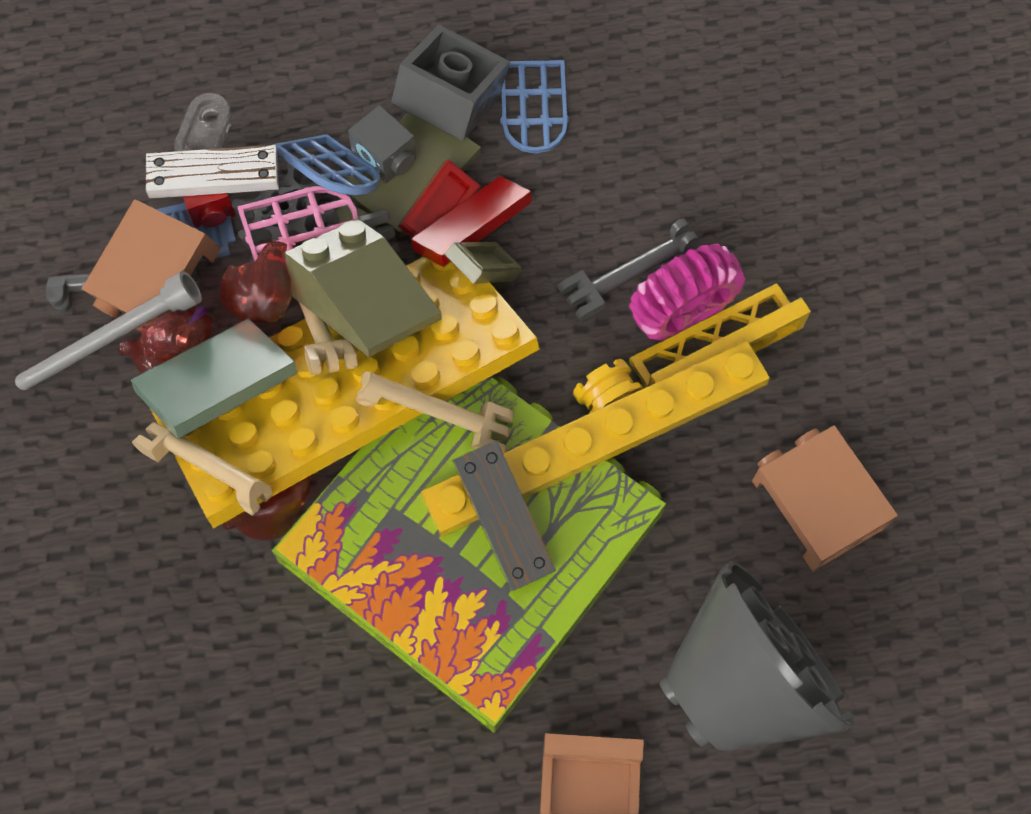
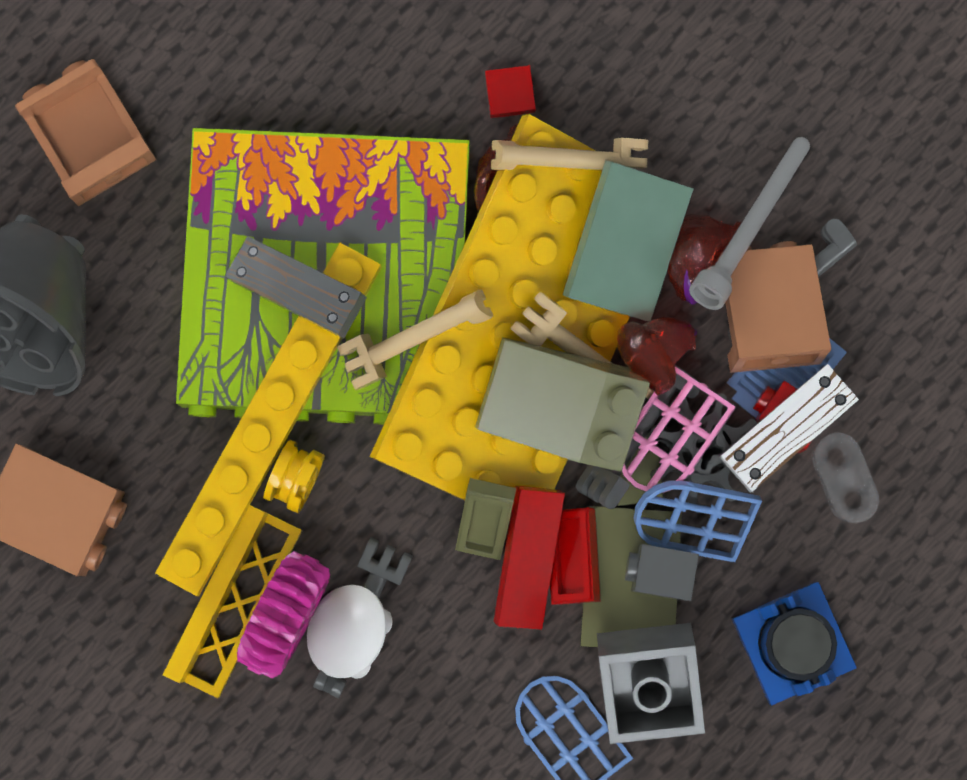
camera: 145 degrees right, 15 degrees up
(207, 582) = (510, 91): none -> red tile
(329, 50) = (797, 643): none -> piece
(640, 250) = (347, 632): none -> white dish

